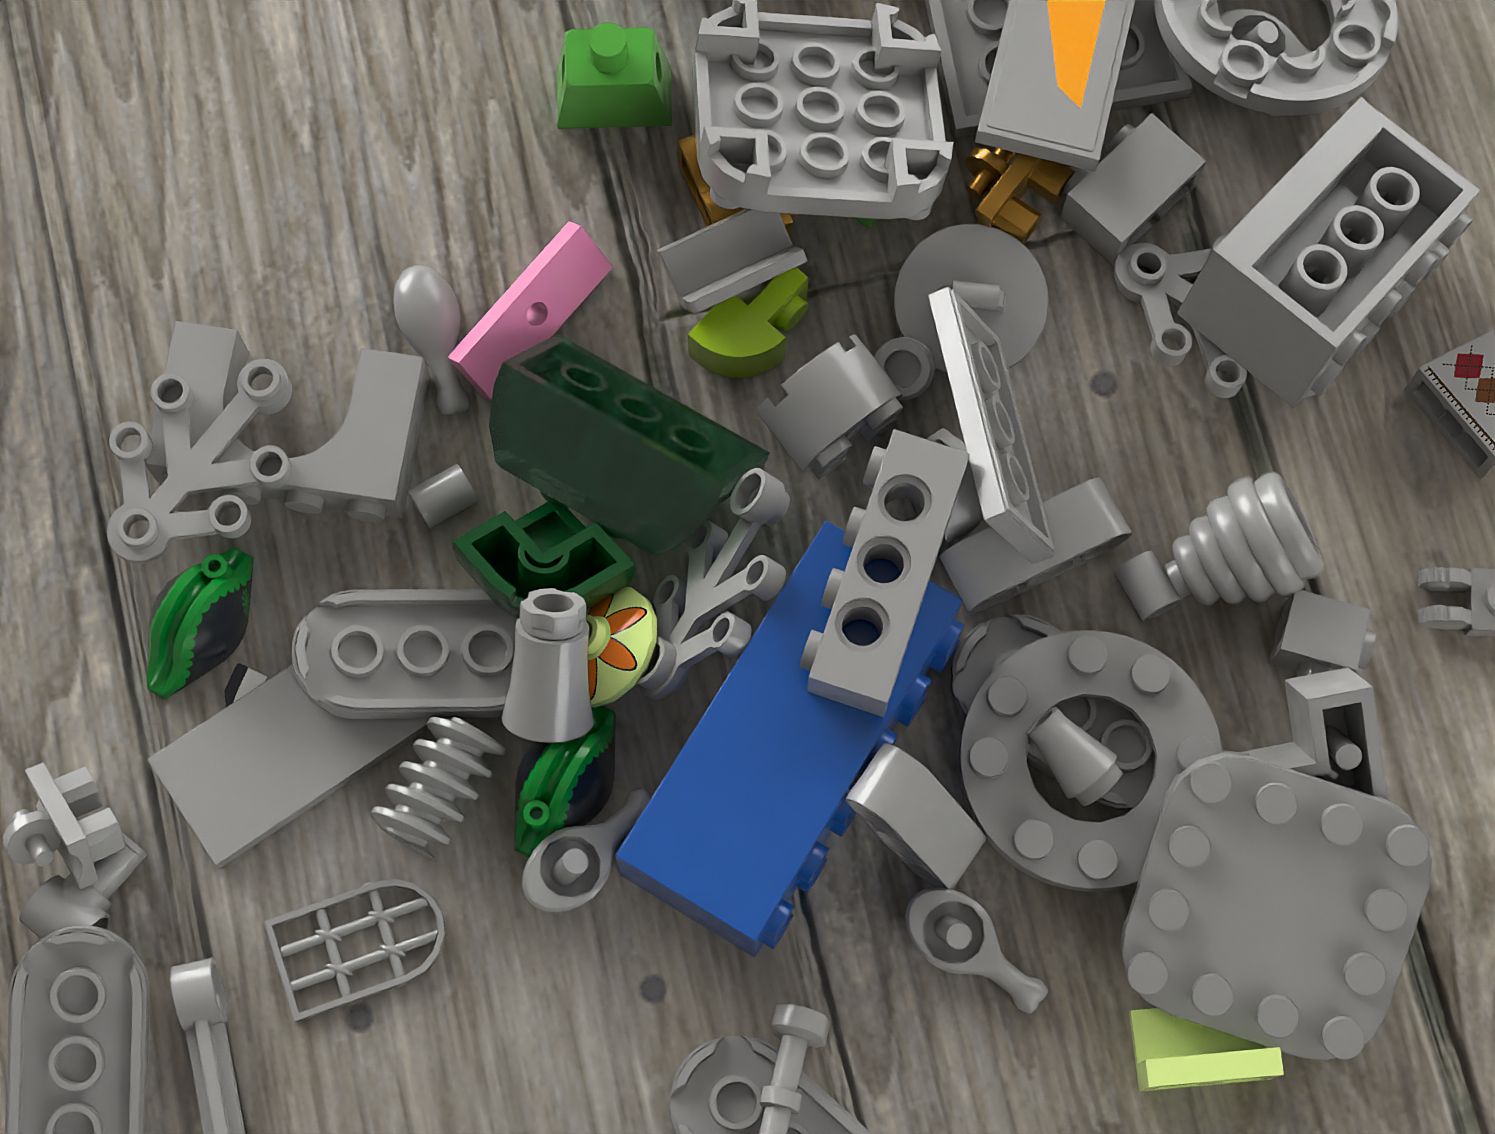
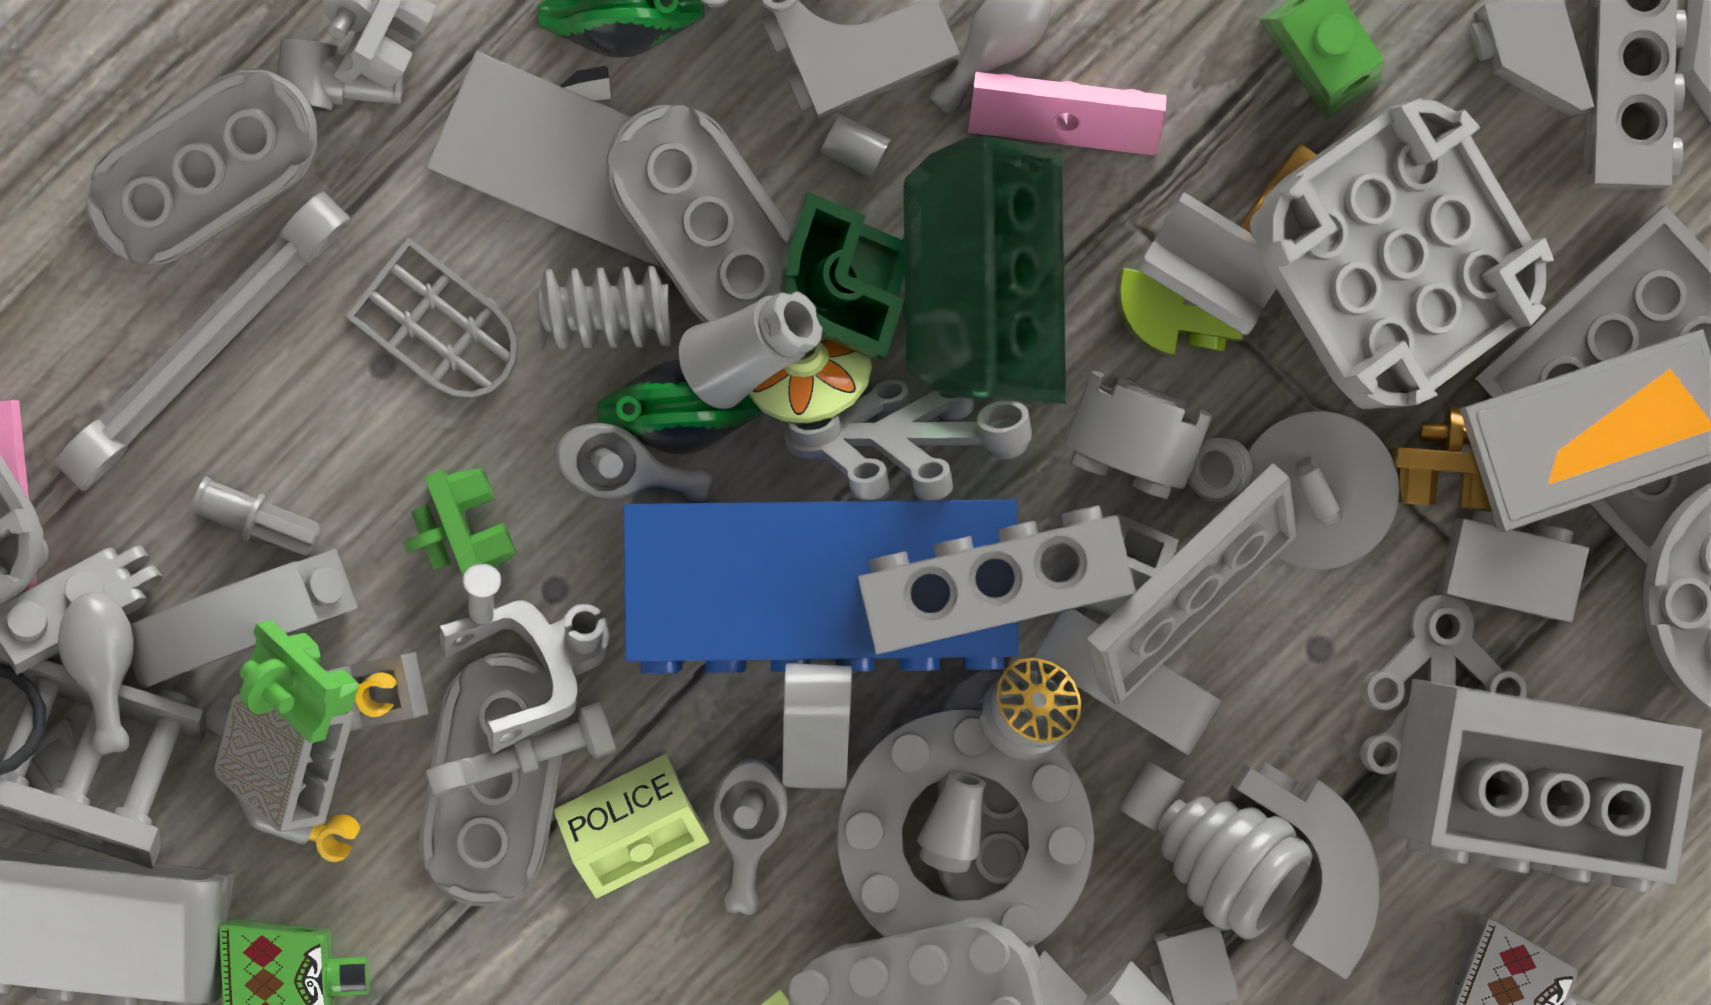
camera: 55 degrees right, 15 degrees up
(514, 1023) = (452, 497): none -> bright green hips
(707, 1010) = (562, 648): none -> light grey piece
(904, 1050) = (630, 826): none -> yellowish green panel
(1013, 635) = (1028, 711): none -> light grey wheel
(1322, 472) = (1346, 875): none -> light grey arch

